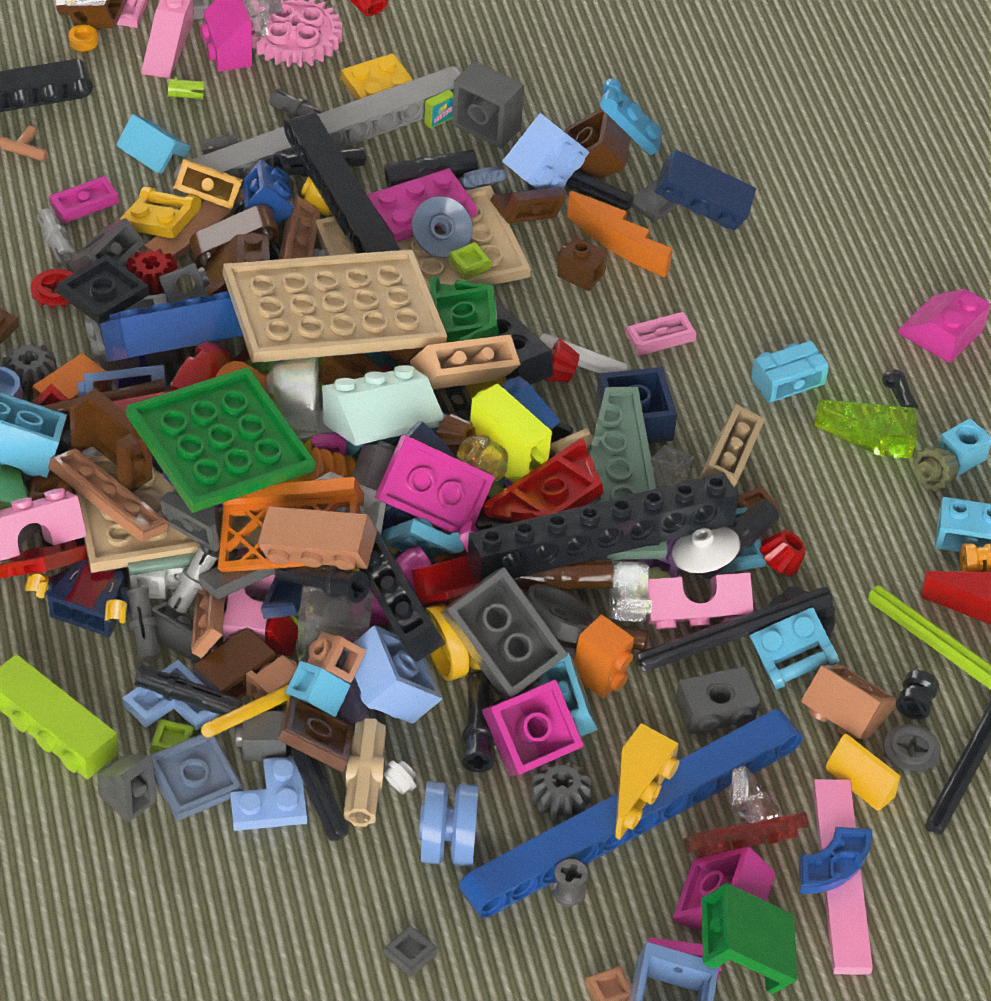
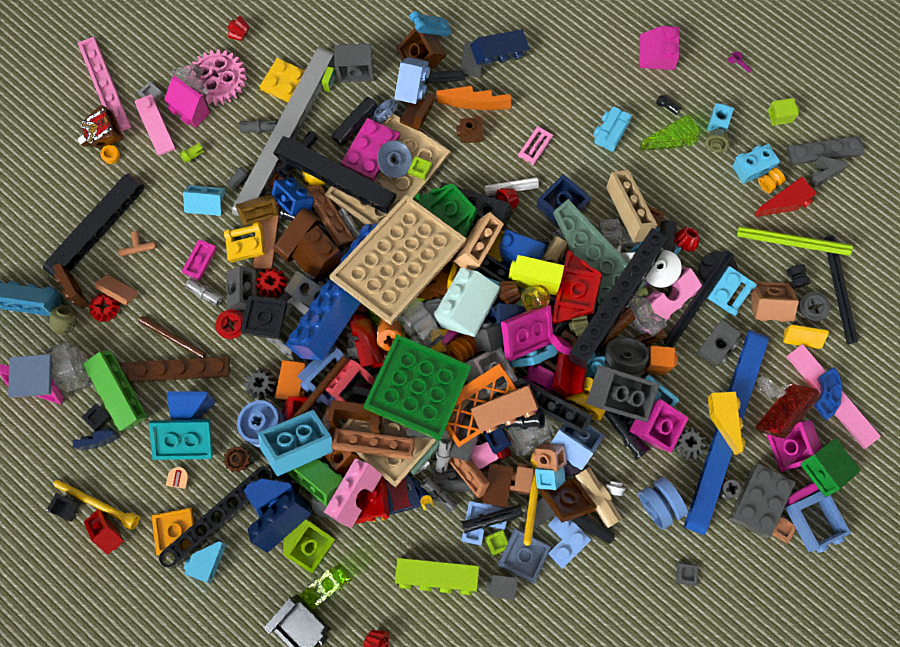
camera: 30 degrees left, 25 degrees up
(603, 923) = (761, 501): none -> dark grey brick

